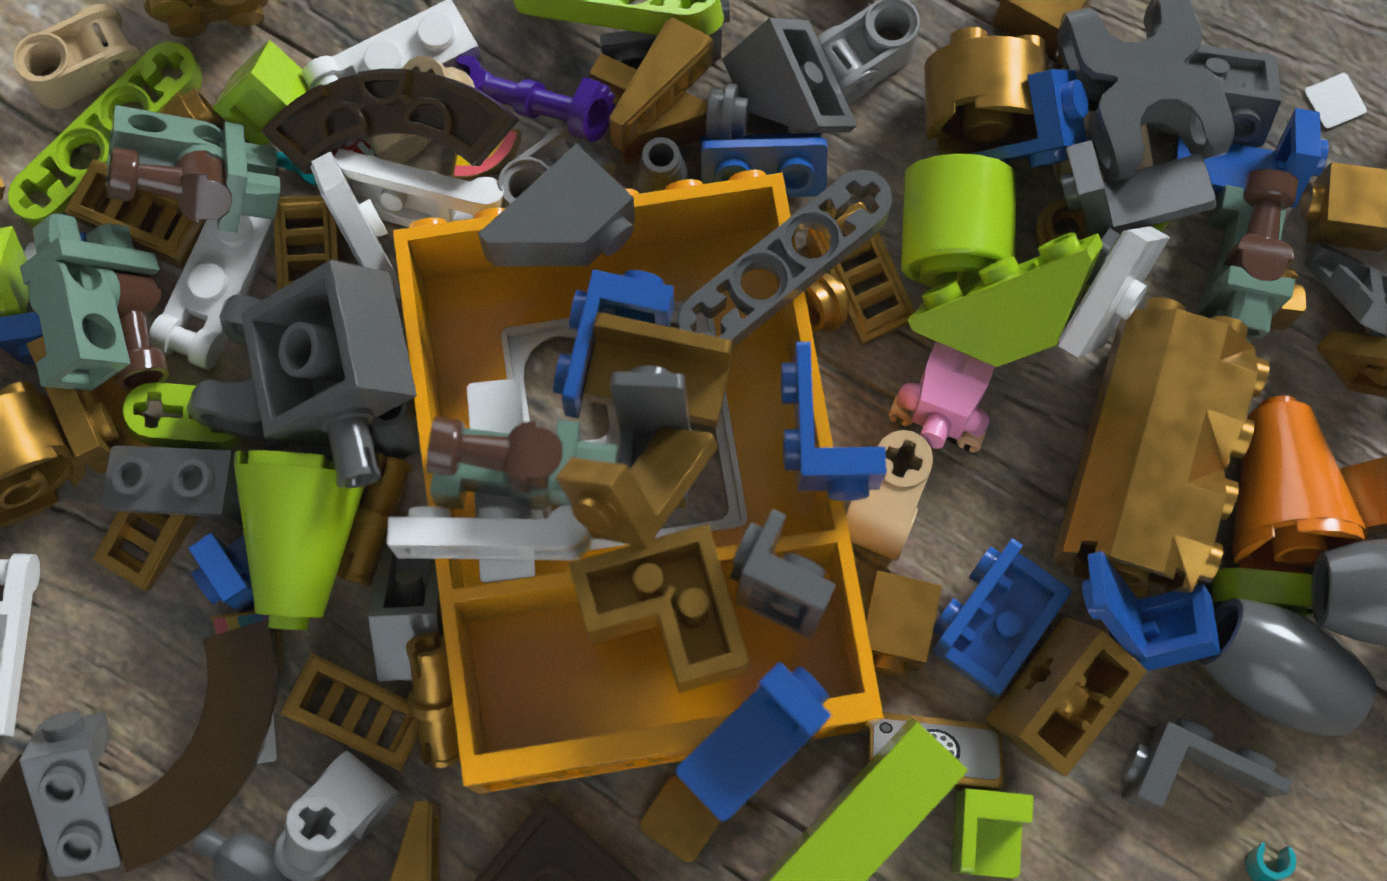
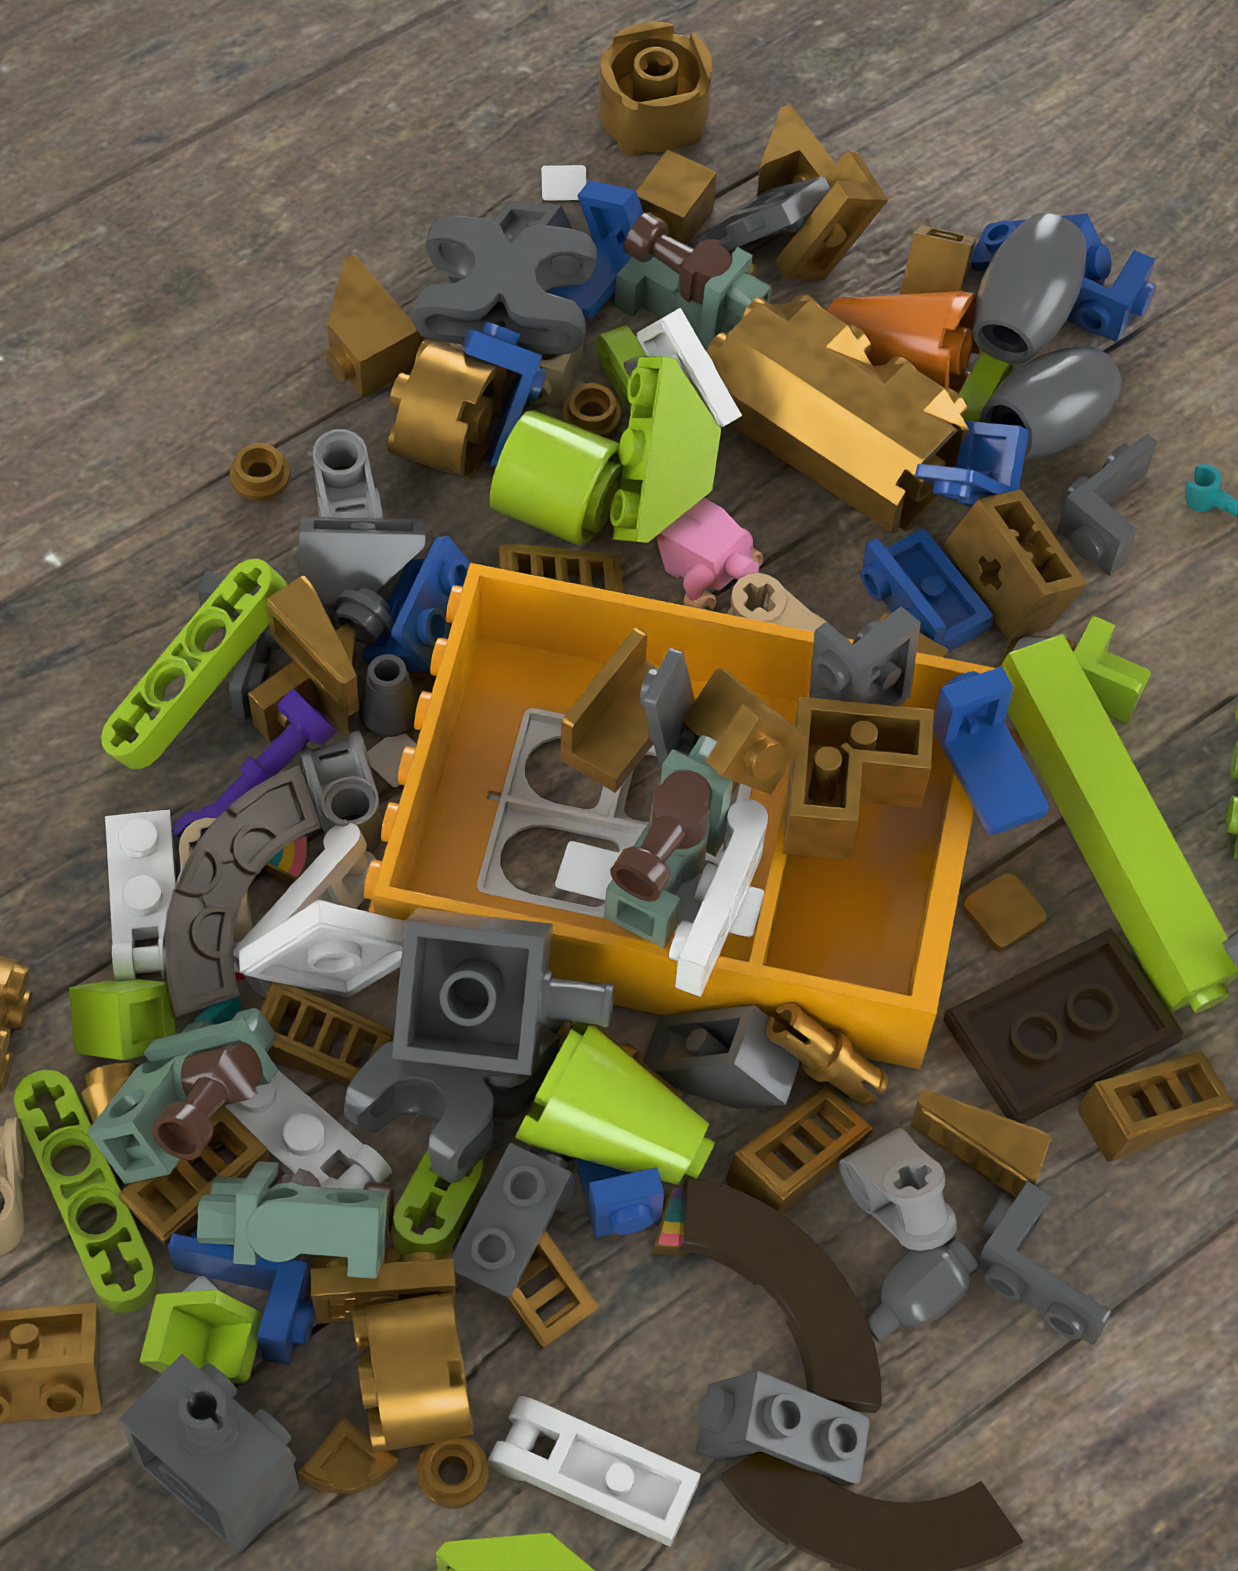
camera: 70 degrees left, 15 degrees down
(562, 217) = (441, 731): dark grey slope -> none
(631, 296) = (553, 748): blue bracket -> none
(780, 258) = (558, 586): dark grey beam -> none
(840, 471) = (734, 621): blue bracket -> none
(1145, 199) = (611, 316): dark grey bracket -> none

